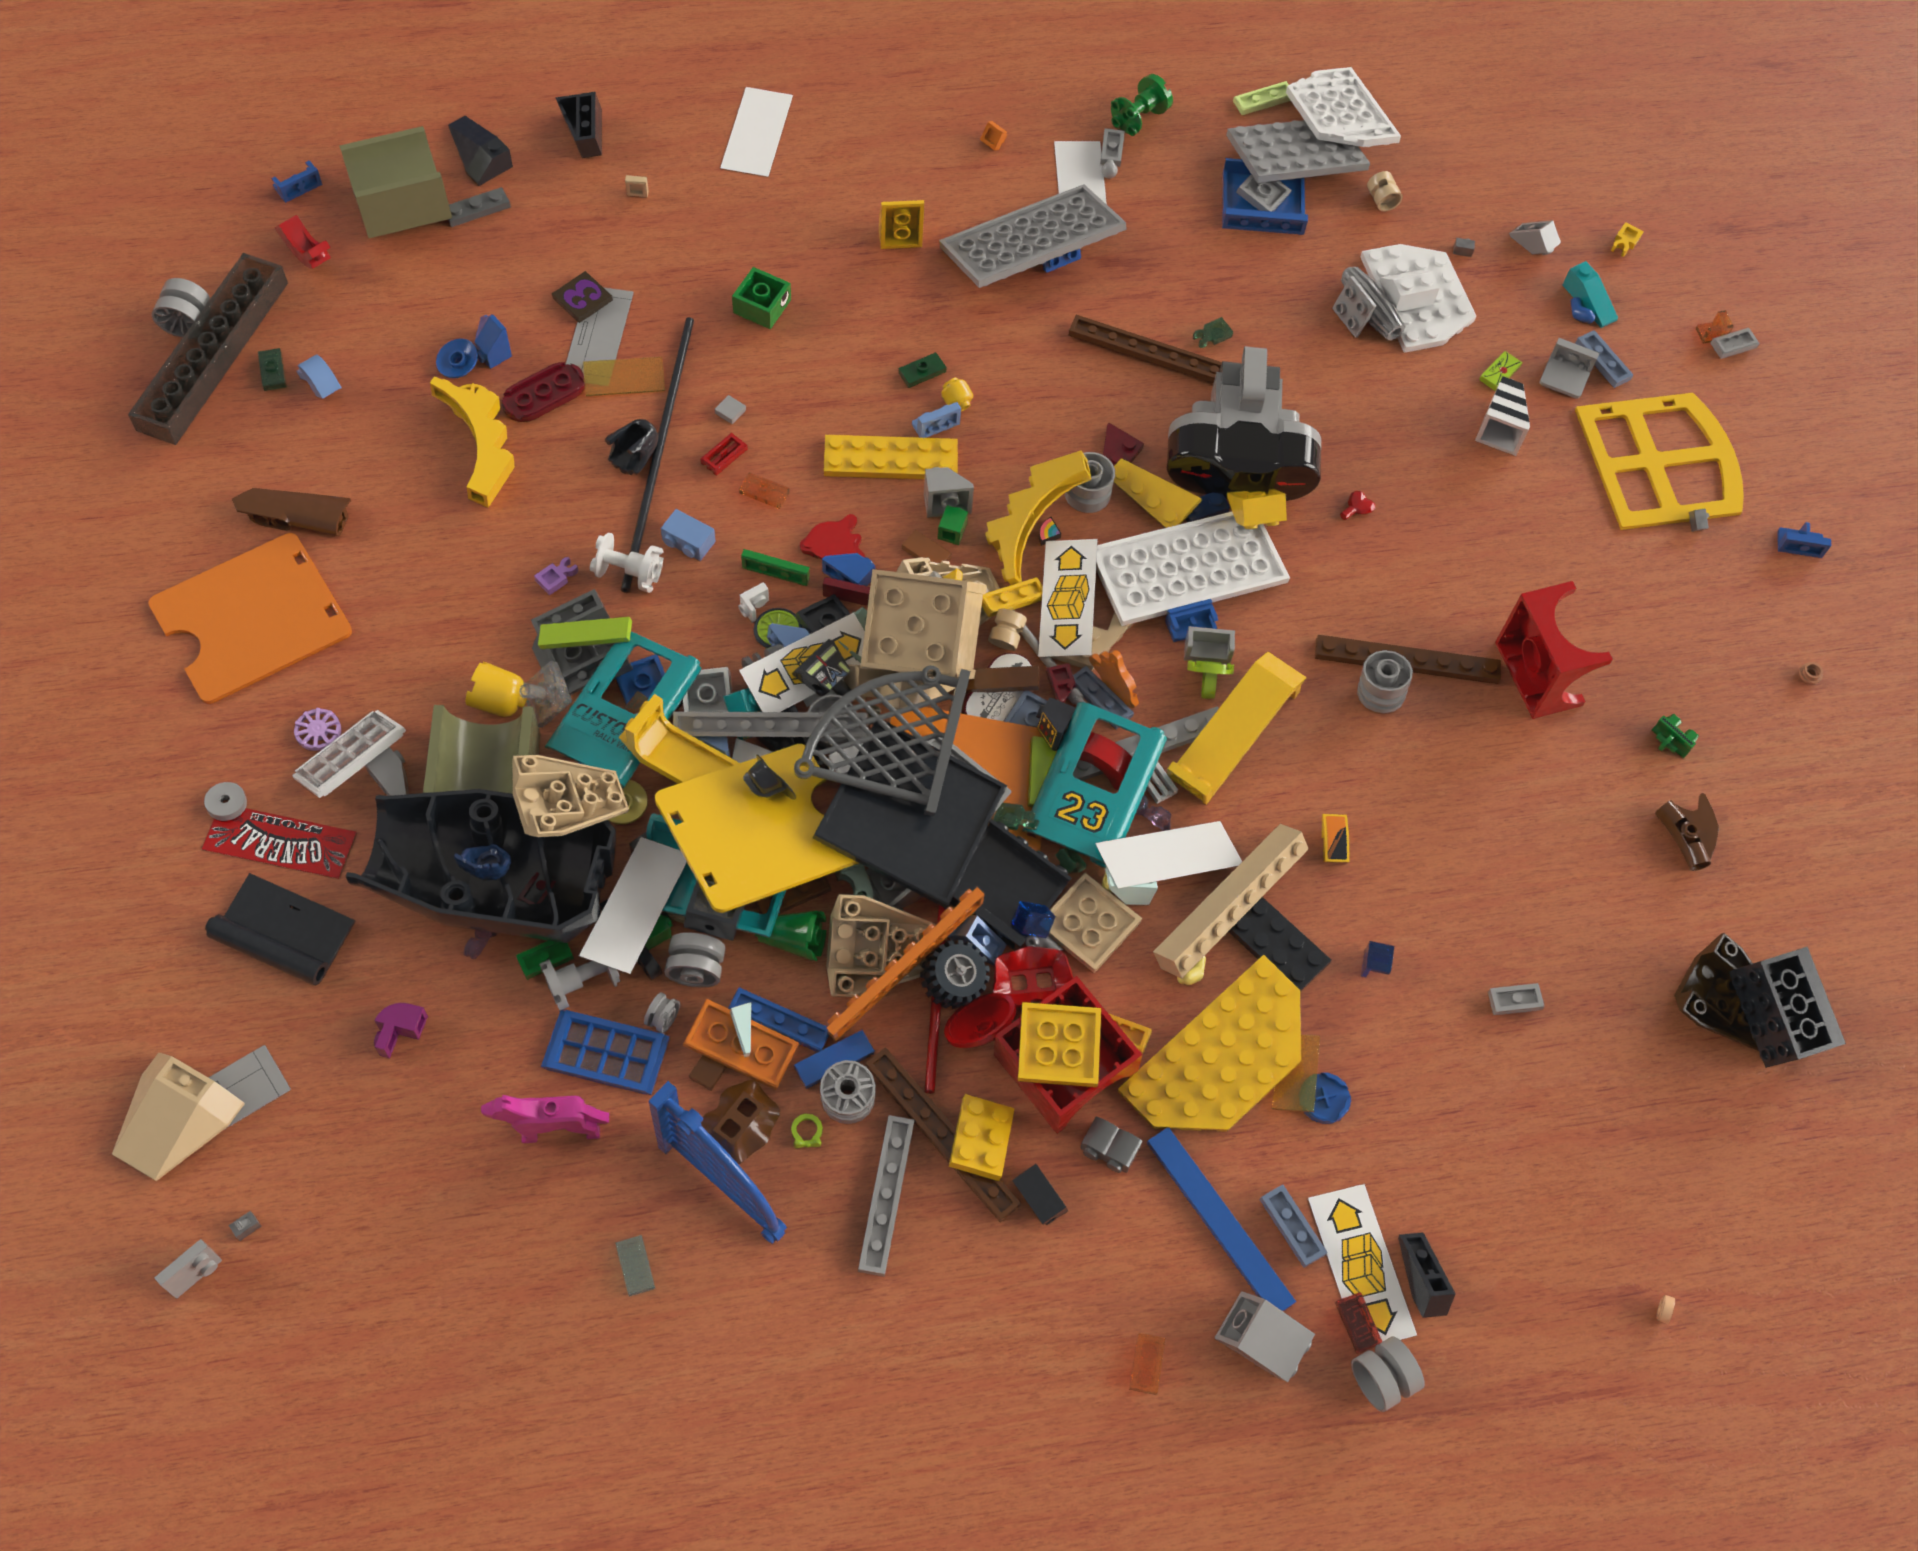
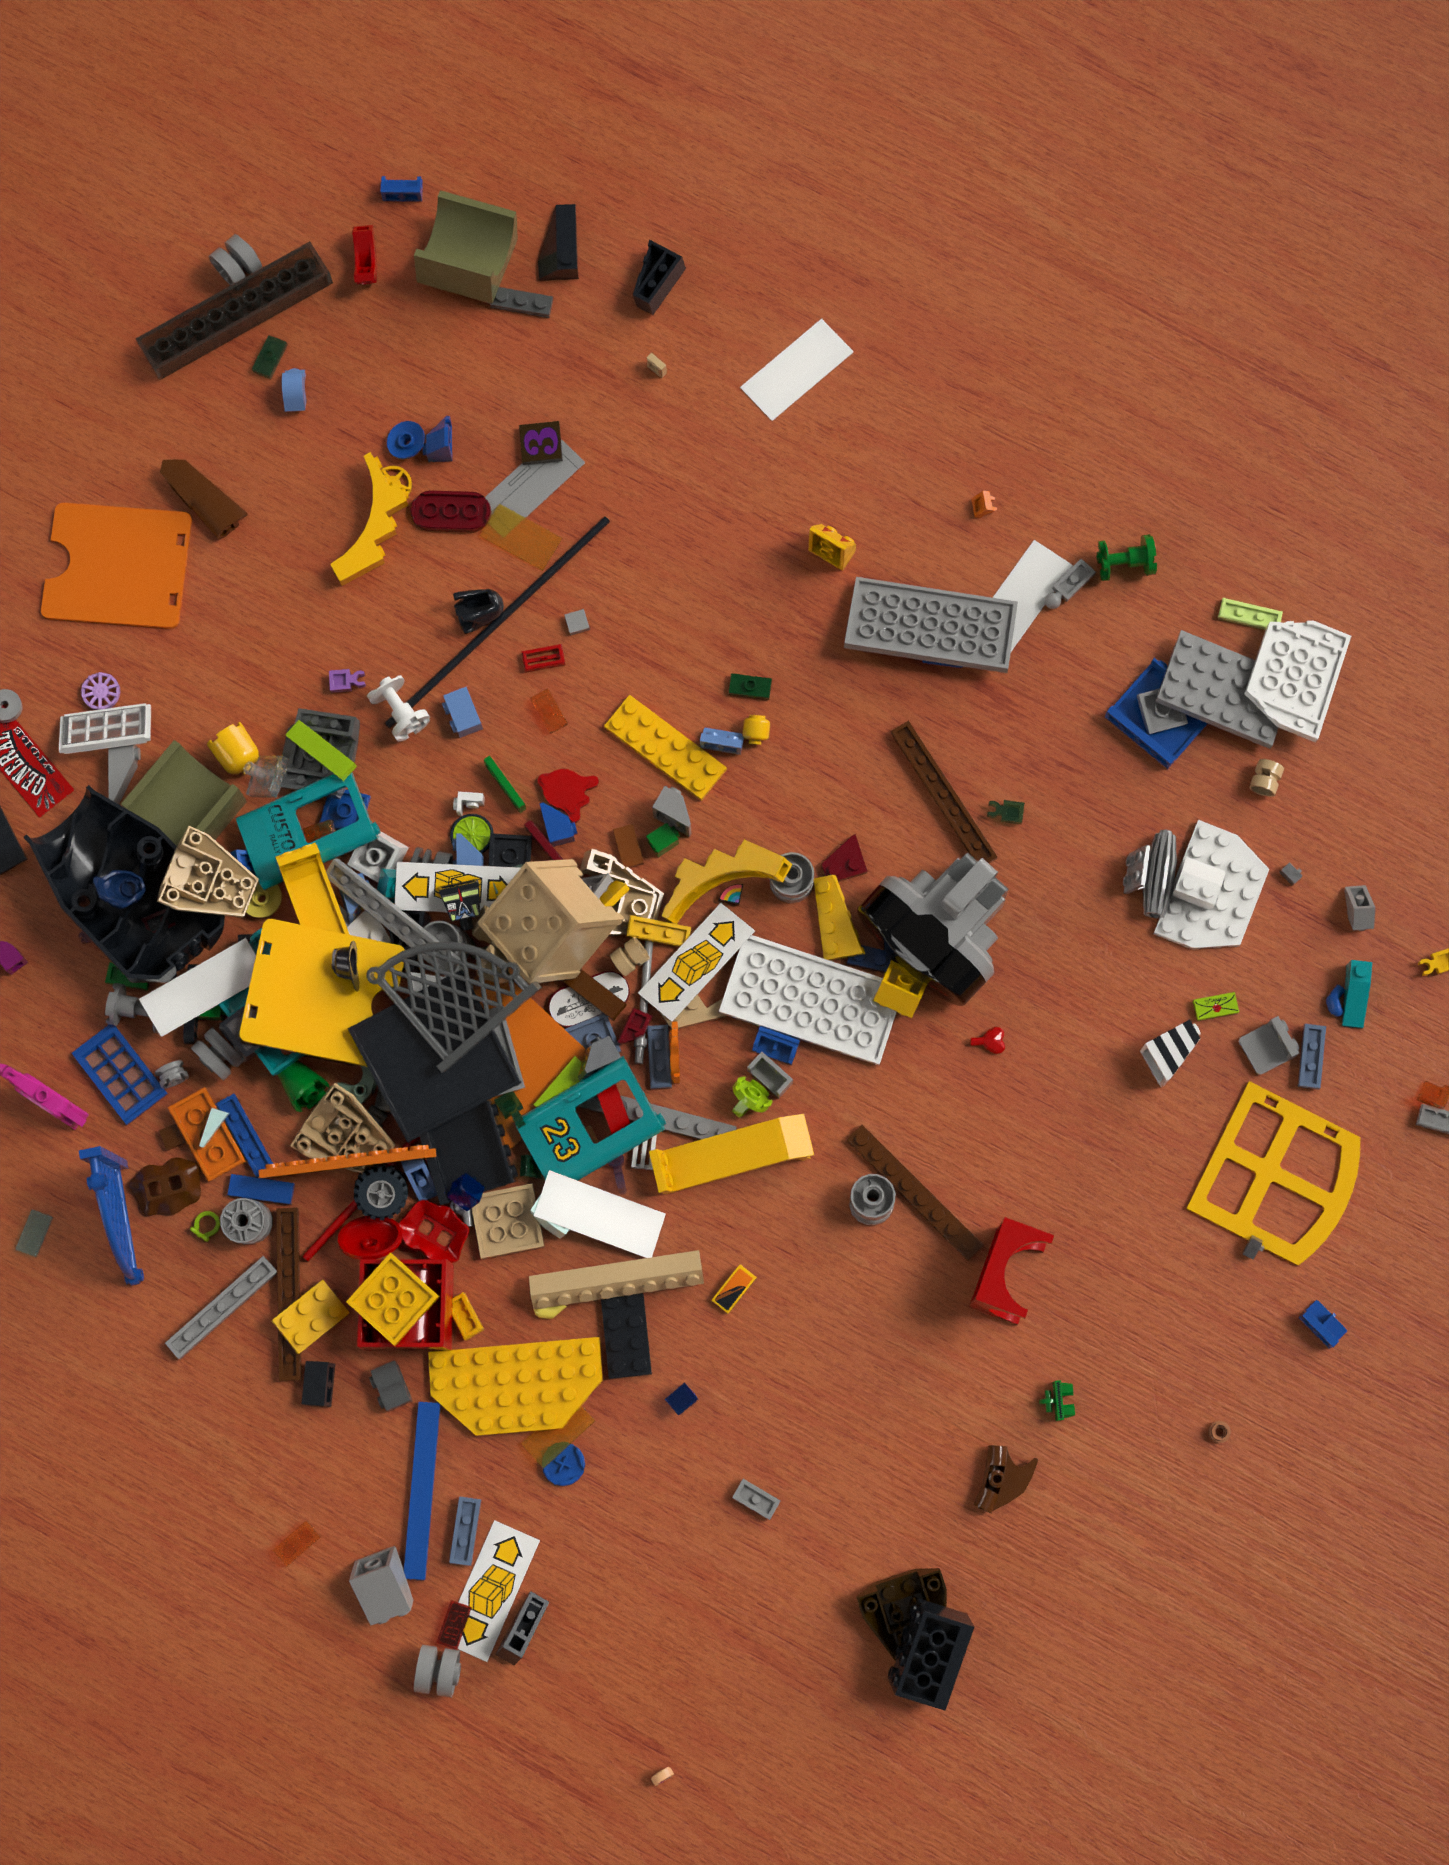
camera: 45 degrees right, 15 degrees up
(761, 297) = (671, 539): green brick -> none

